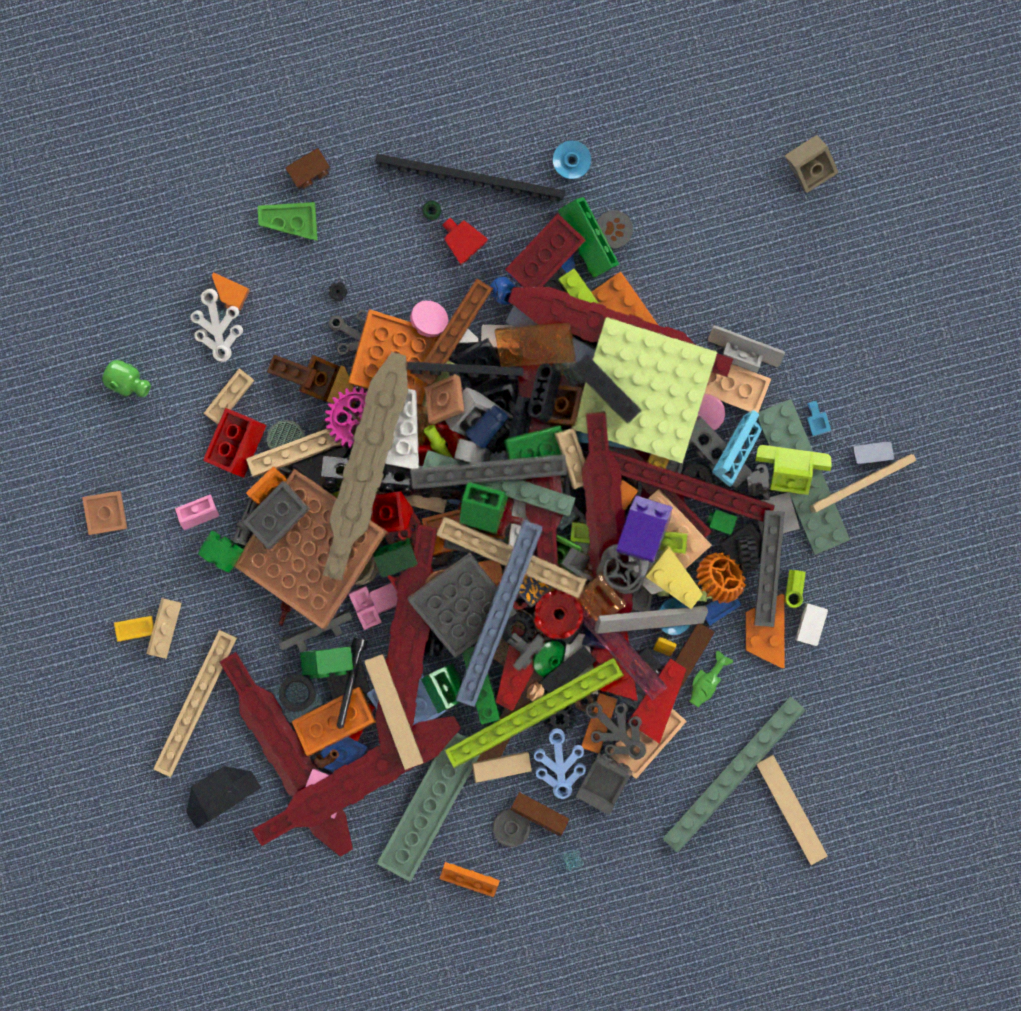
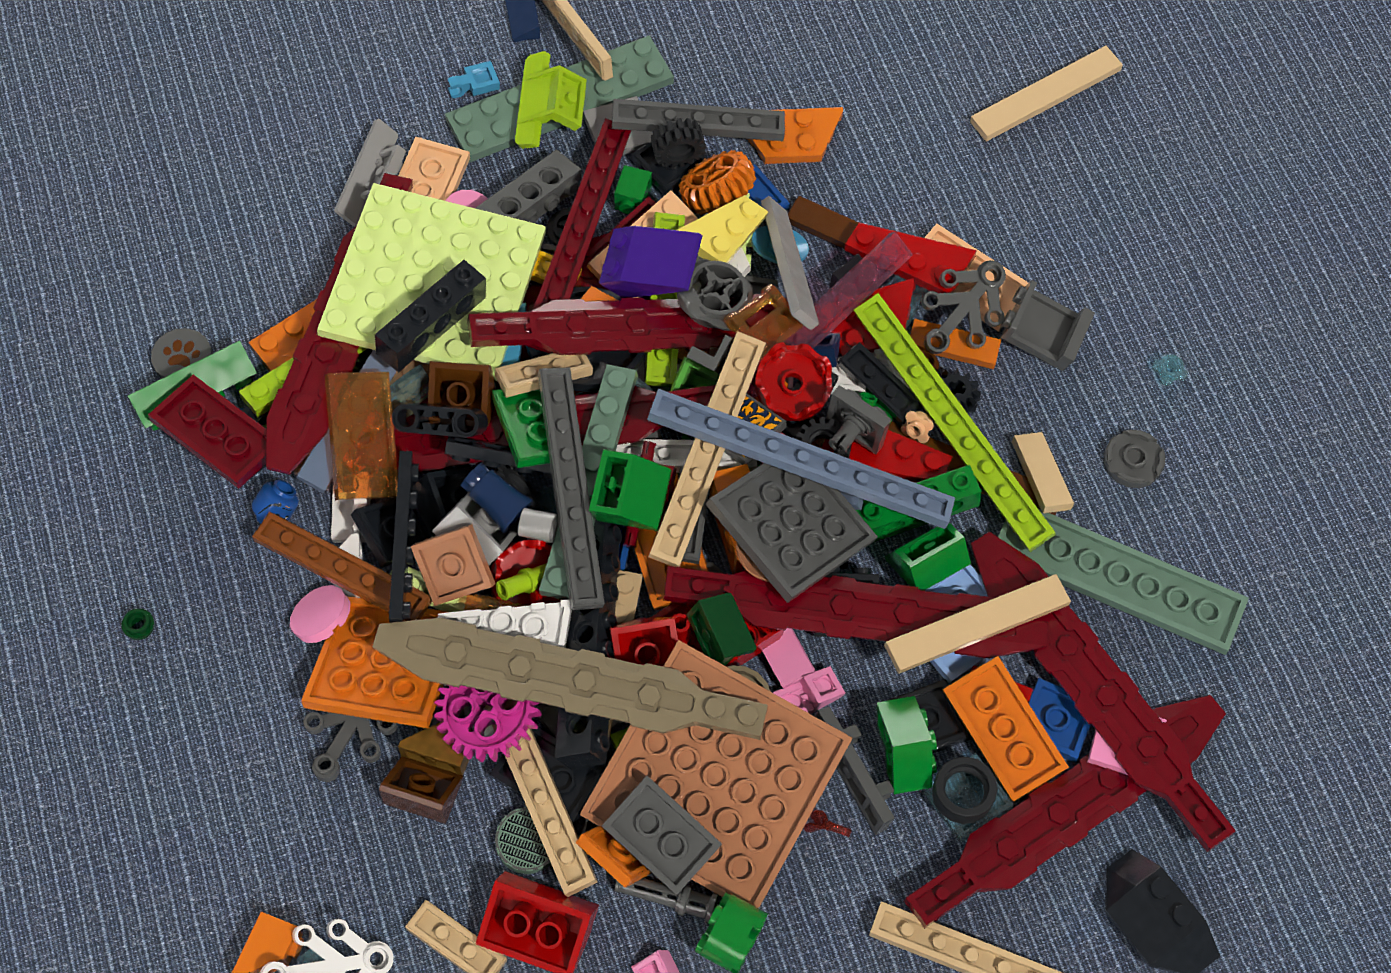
camera: 90 degrees left, 25 degrees down
(291, 371) = (409, 827): reddish brown tile -> none
(293, 219) = (140, 852): bright green wing -> none
(308, 169) = (53, 825): reddish brown brick -> none
(329, 758) = (1073, 742): reddish brown arm -> none
(338, 296) = (271, 758): black plate -> none
(359, 646) = (871, 695): black piece -> none
(462, 176) = (83, 574): black plate -> none
(463, 240) = (190, 570): red torso -> none
(469, 879) = (1227, 511): orange plate -> none
(539, 814) = (1107, 417): reddish brown tile -> none
(560, 766) = (1027, 385): light blue plant -> none
(578, 152) = (59, 407): dark azure dish -> none
(664, 646) = (826, 259): yellow slope -> none
(705, 684) = (877, 205): bright green animal -> none
(734, 446) = (518, 162): medium azure fence -> none
(734, 774) = (1009, 164): sand green plate -> none
(759, 483) = (569, 142): dark grey piece -> none
(795, 586) = (736, 95): lime piece -> none
(811, 163) = (92, 99): dark tan slope -> none
(811, 624) = (775, 80): white panel -> none

